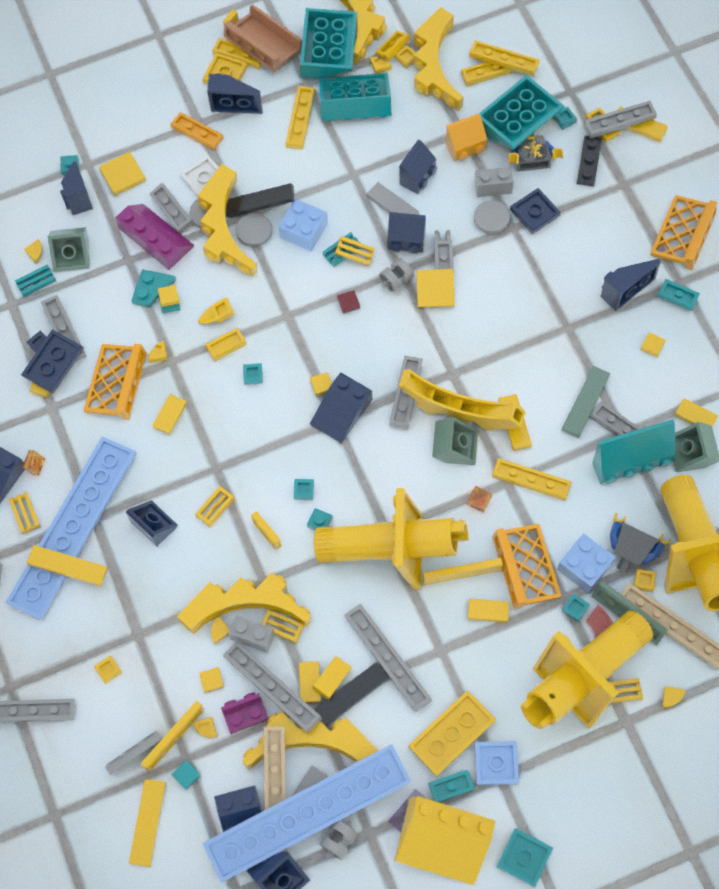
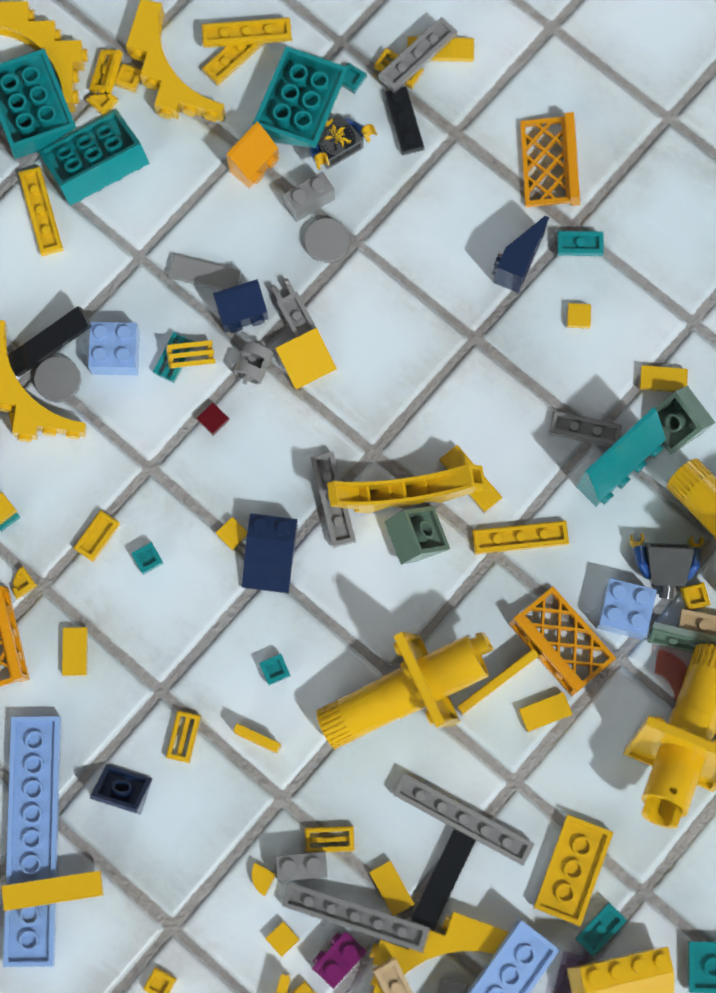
camera: 30 degrees left, 10 degrees up
(217, 312) = (67, 502): yellow plate -> none
(242, 595) = (240, 851): yellow arch -> none
(319, 519) = (310, 697): teal plate -> none
(331, 677) = (414, 872): yellow tile -> none
(417, 168) = (214, 218): dark blue slope -> none
(479, 499) = (475, 588): clear orange plate -> none
(496, 763) = (636, 879): light blue plate -> none
(535, 211) = (373, 211): dark blue plate -> none
(575, 607) = (637, 664): teal plate -> none
(586, 401) = (537, 418): sand green tile -> none

